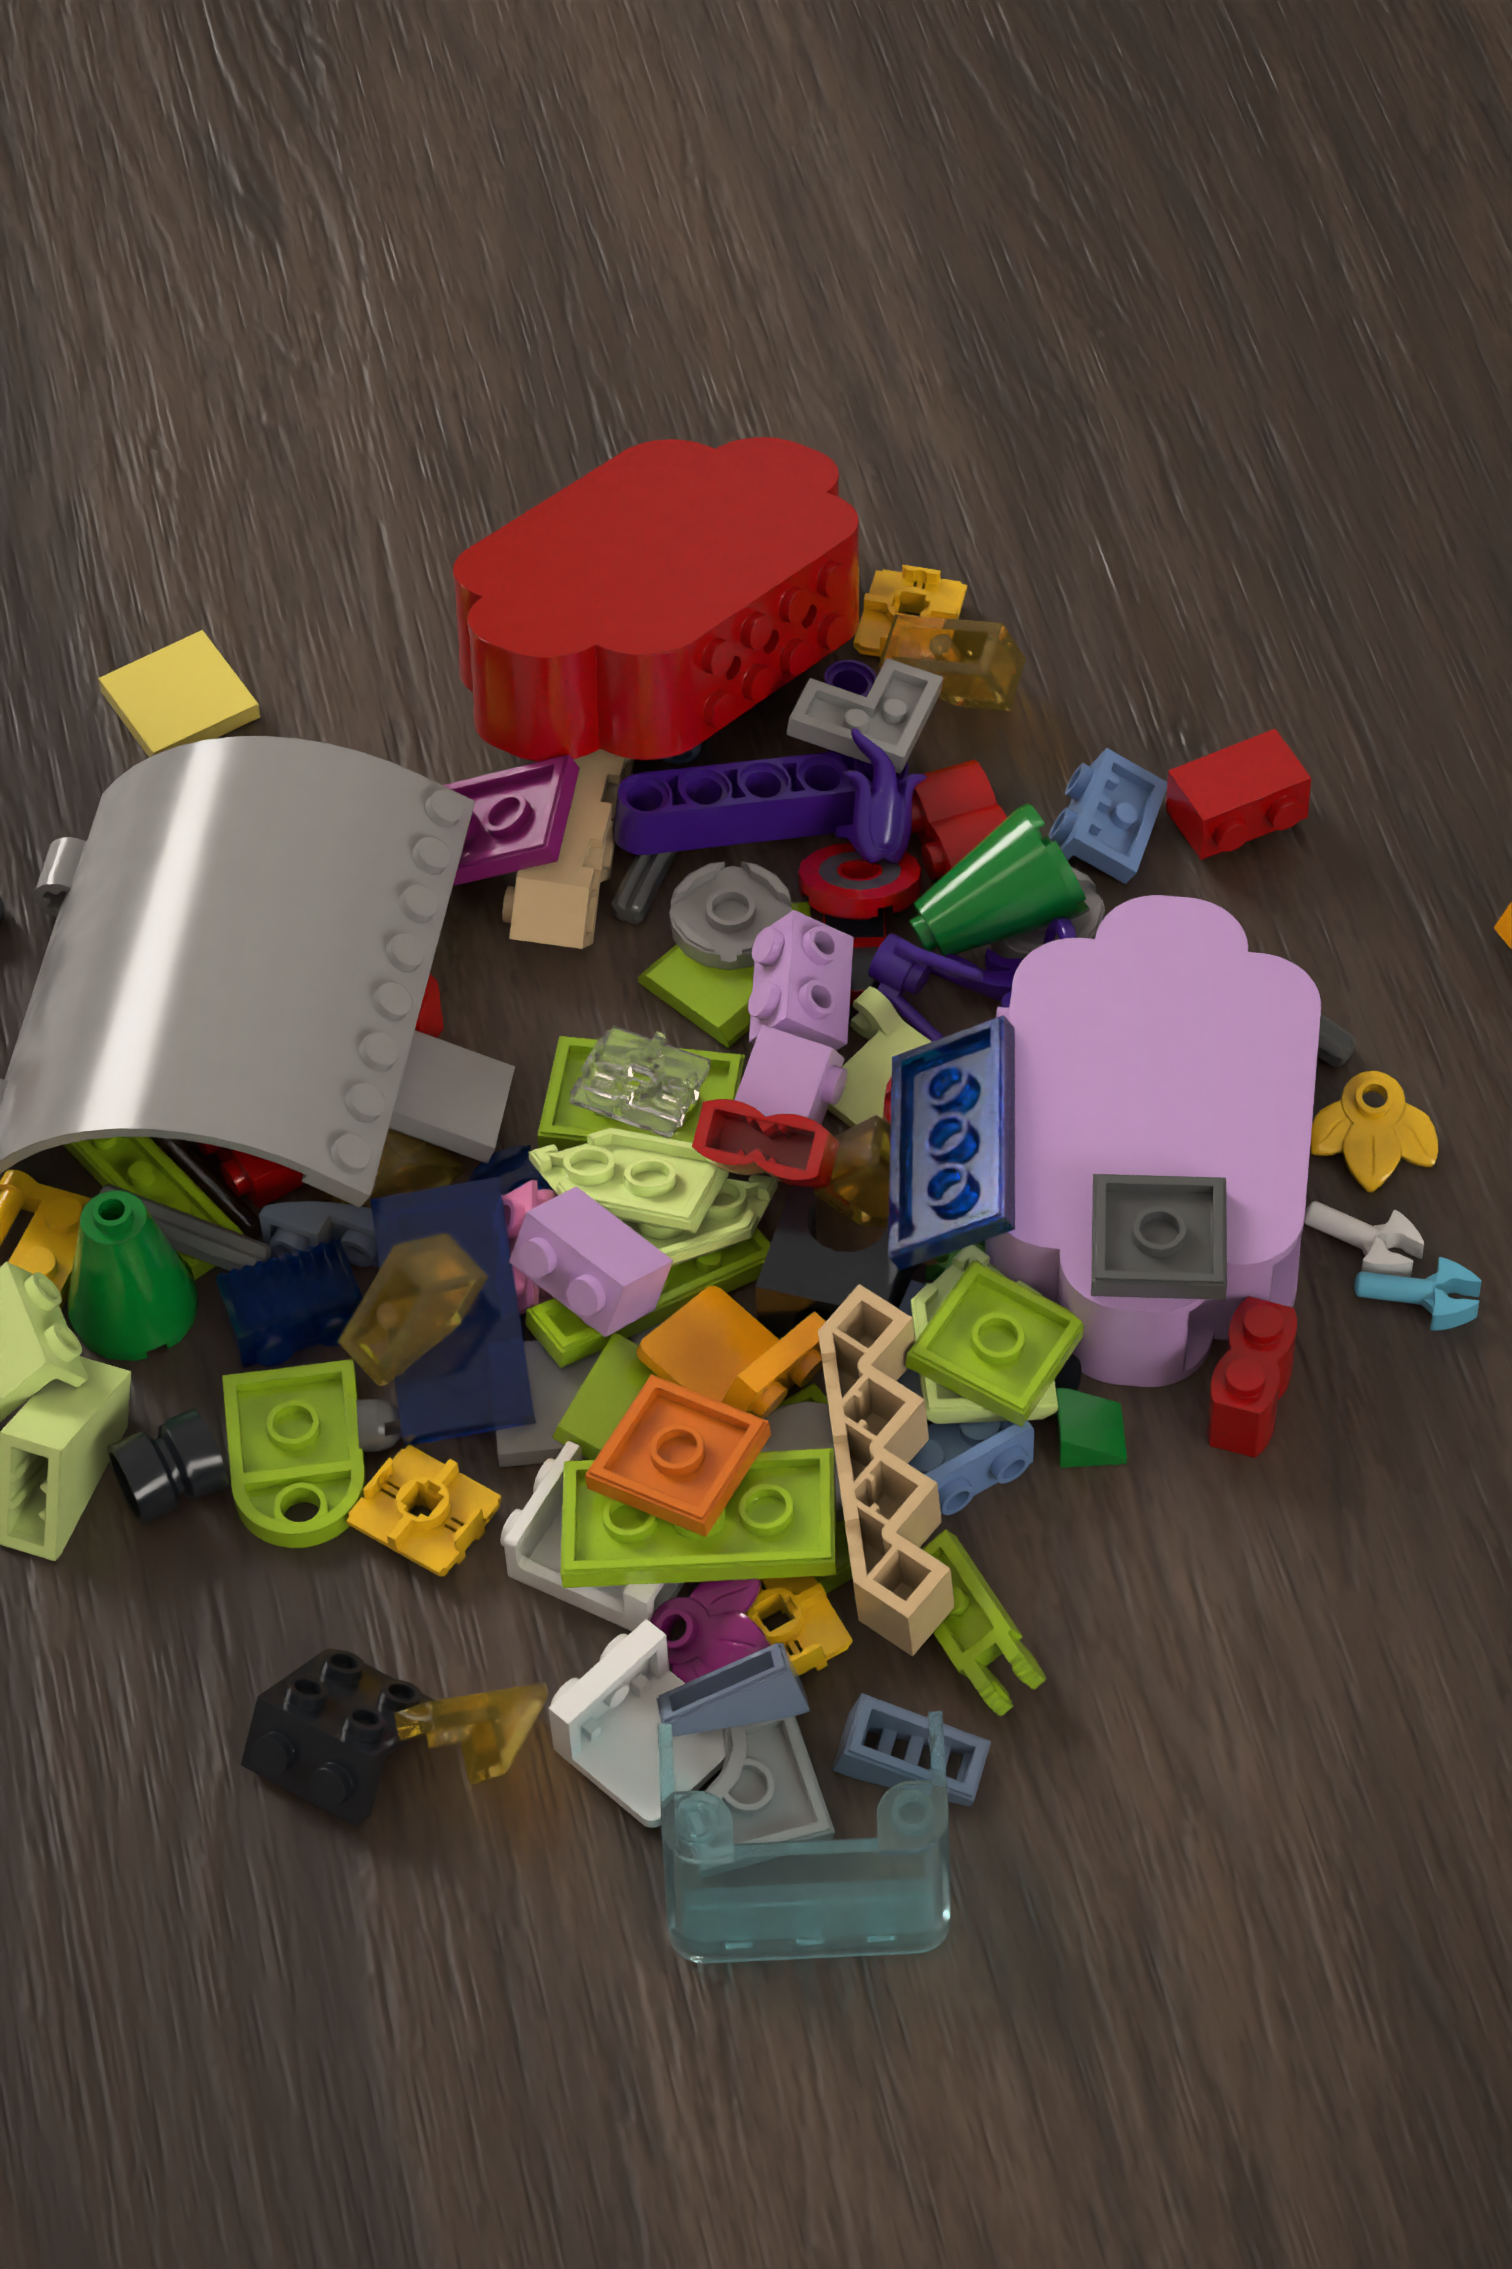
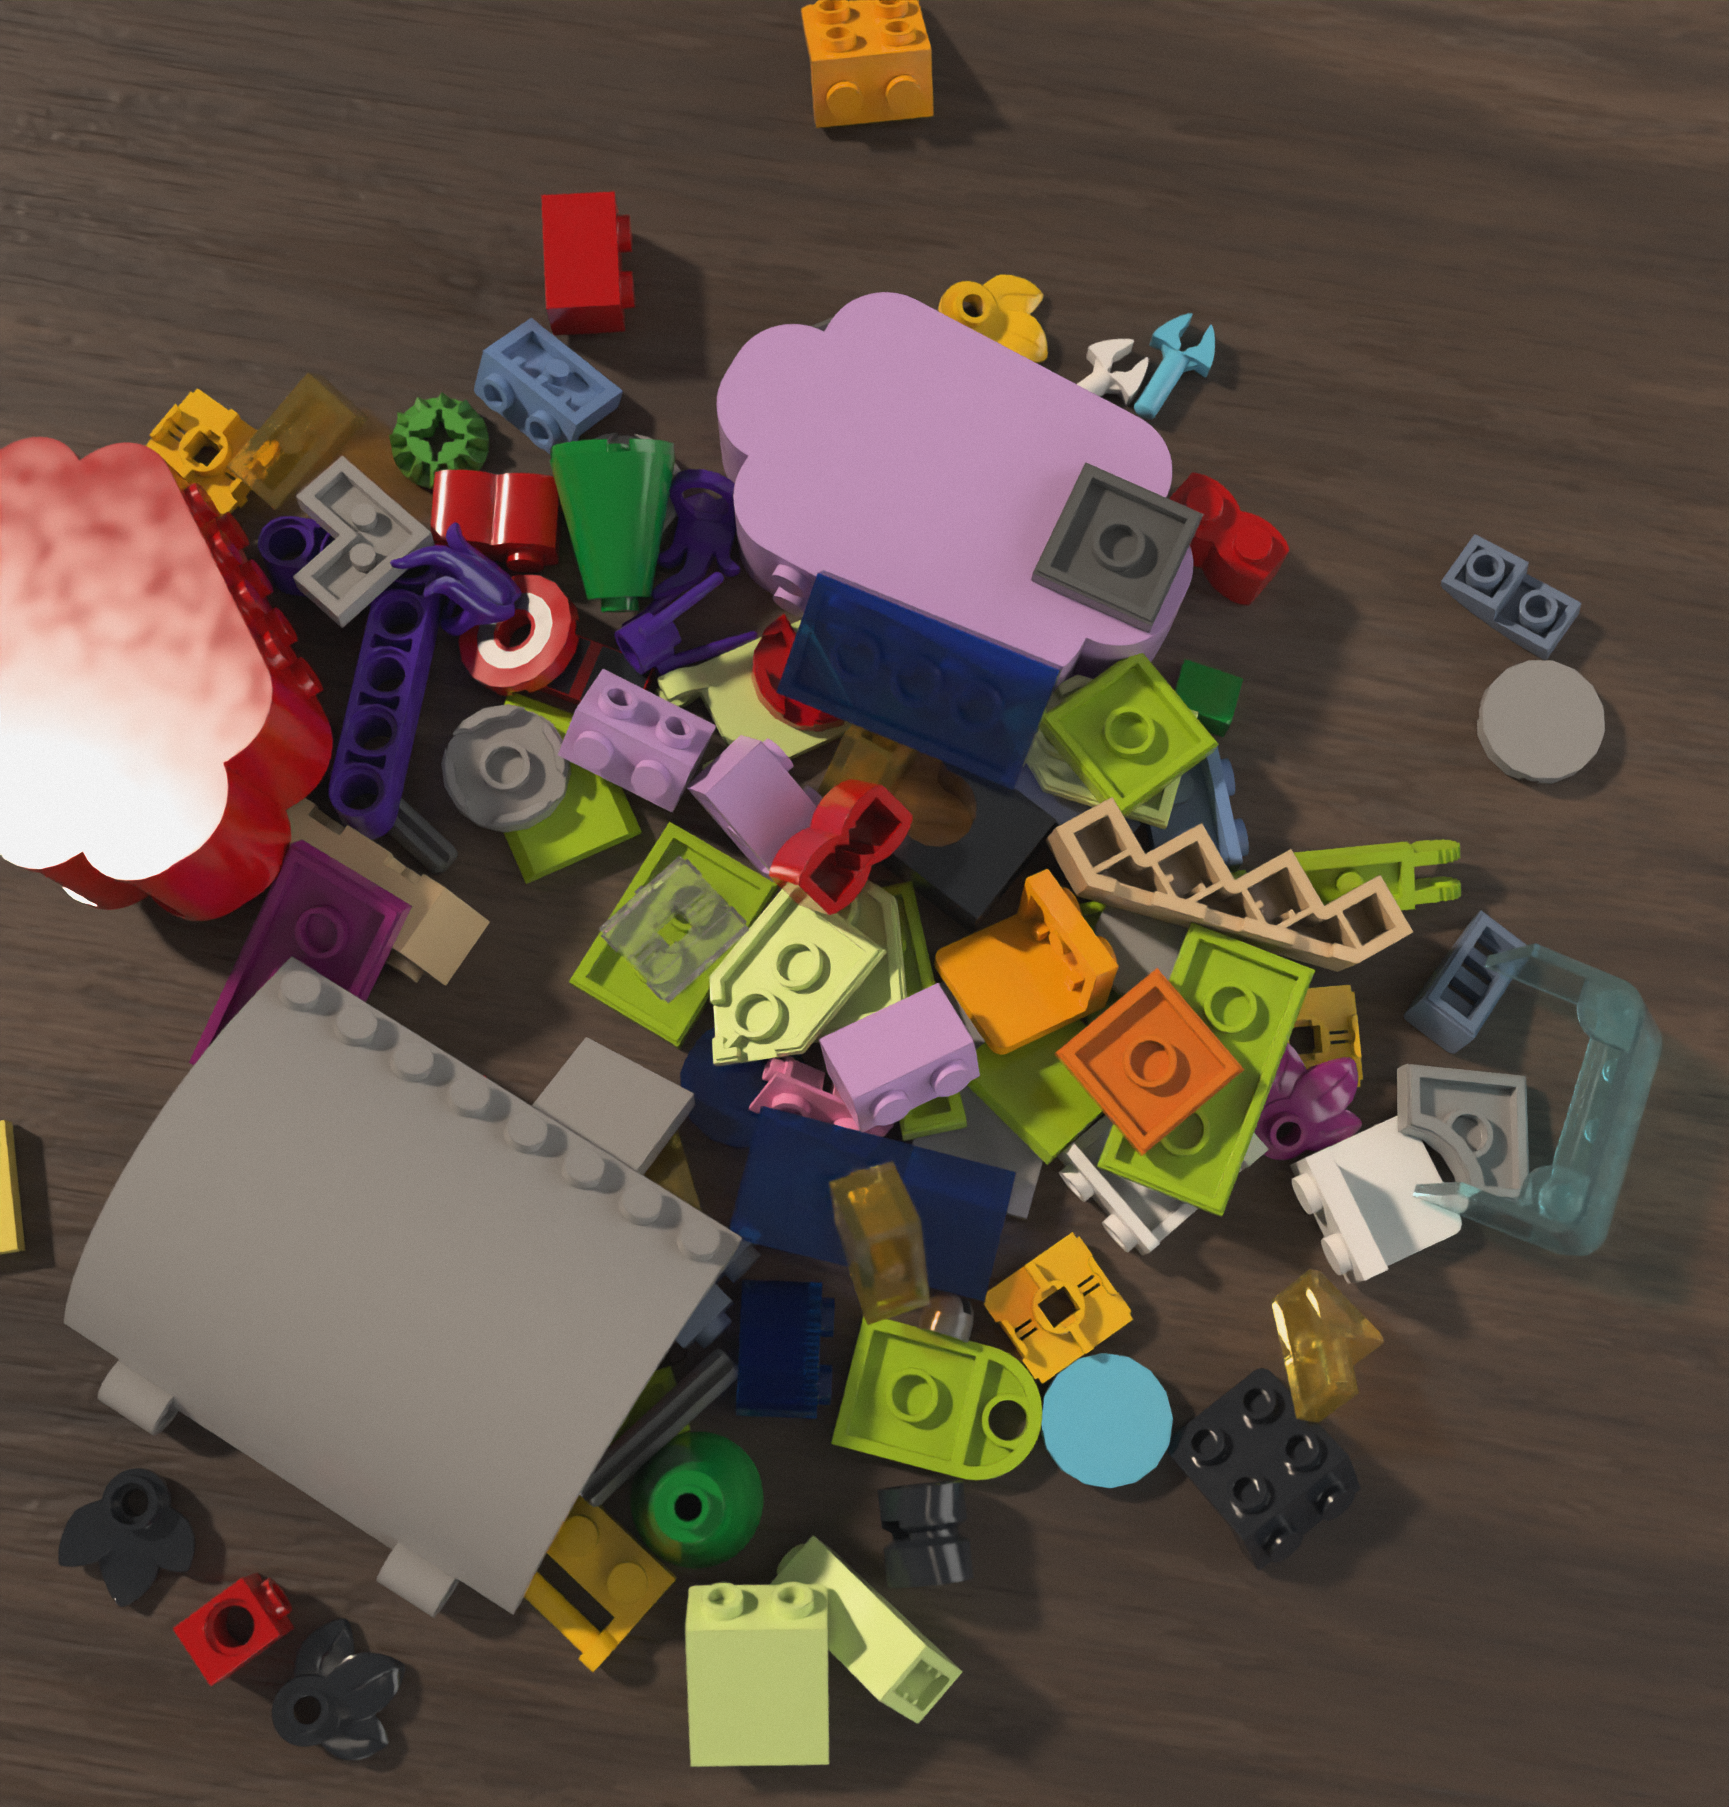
camera: 75 degrees left, 25 degrees up
(334, 1589) = (1106, 1420): none -> medium azure tile
(738, 1694) = (1415, 1096): sand blue slope -> none
(1042, 773) = (461, 423): none -> bright green gear
(1220, 1730) = (1540, 721): none -> light grey tile
(1339, 1660) = (1505, 597): none -> sand blue slope

